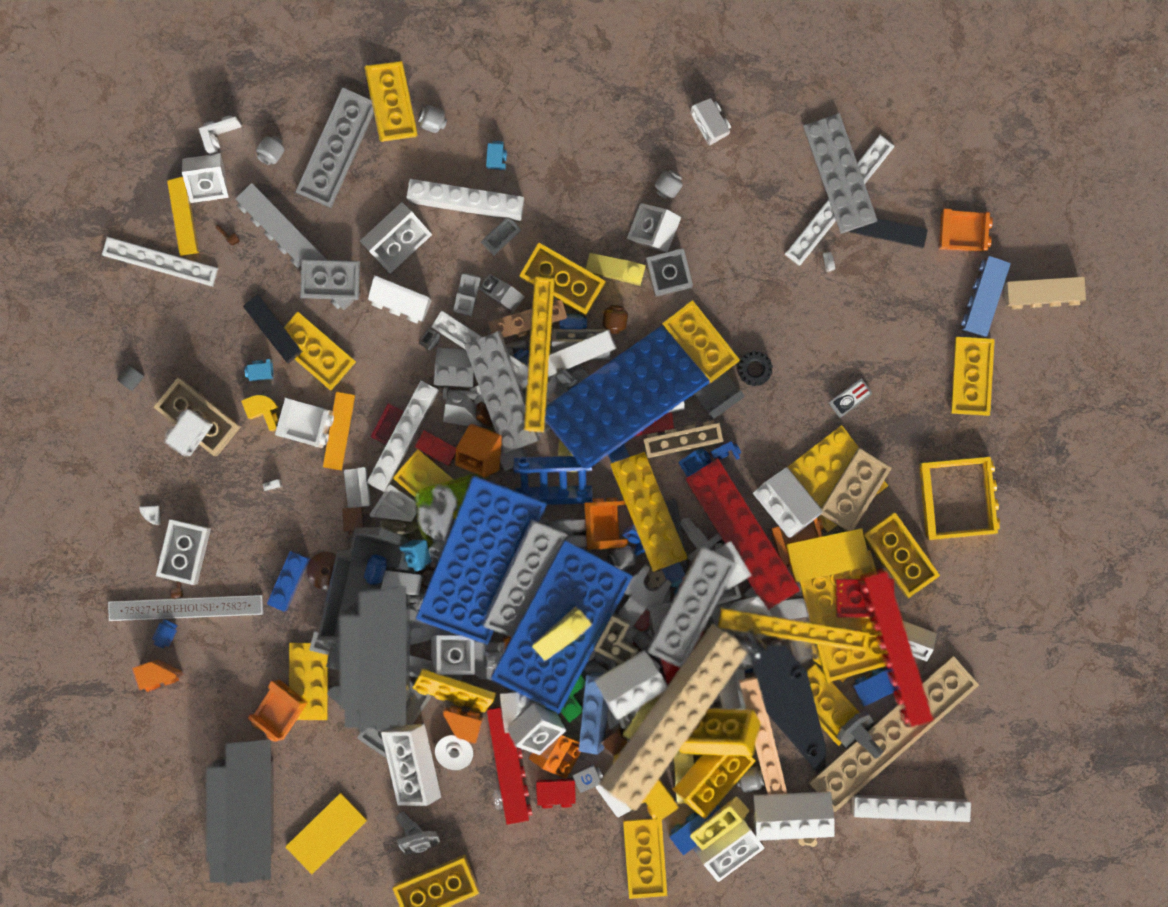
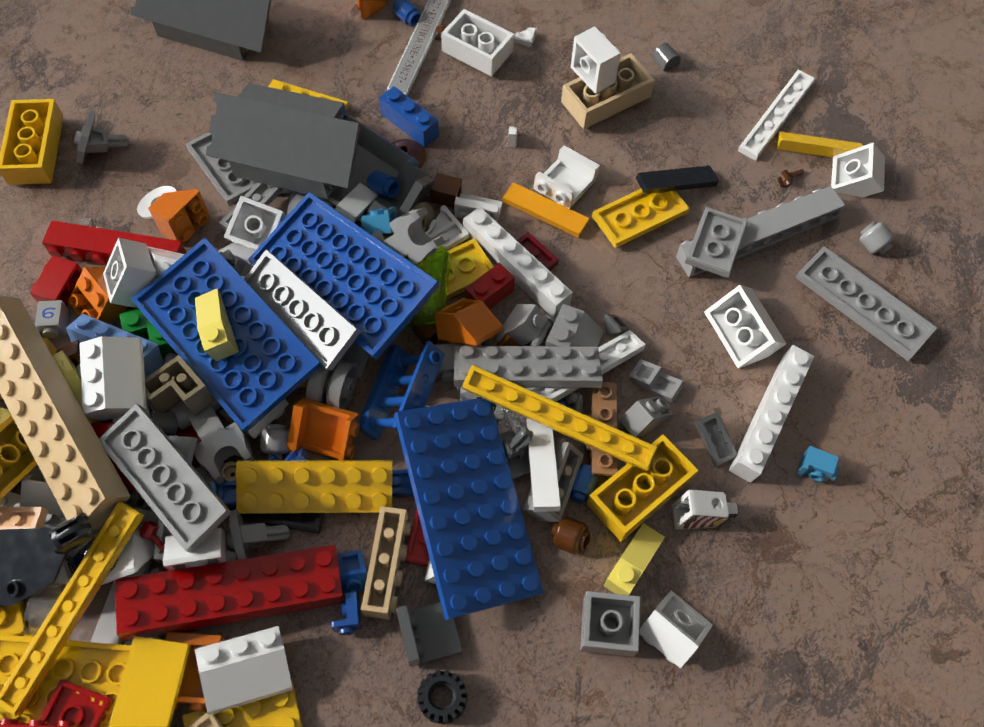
camera: 110 degrees right, 25 degrees down
(211, 129) = (910, 185): white bracket -> none
(259, 370) = (636, 158): dark azure brick -> none
(262, 405) = (597, 147): yellow brick -> none
(278, 711) = (283, 68): orange panel -> none
(326, 833) = (147, 78): yellow tile -> none
(391, 101) = (911, 372): yellow tile -> none
(399, 300) = (672, 305): white slope -> none
(411, 765) = (164, 160): white slope -> none
(432, 119) = (880, 409): light grey head -> none
(453, 690) = (223, 206): yellow plate -> none
(565, 235) = (702, 510): none -> white torso
(668, 184) = (730, 669): light grey head -> none
(701, 341) = (503, 634): yellow plate -> none
(727, 605) = (148, 531): none -> red hand

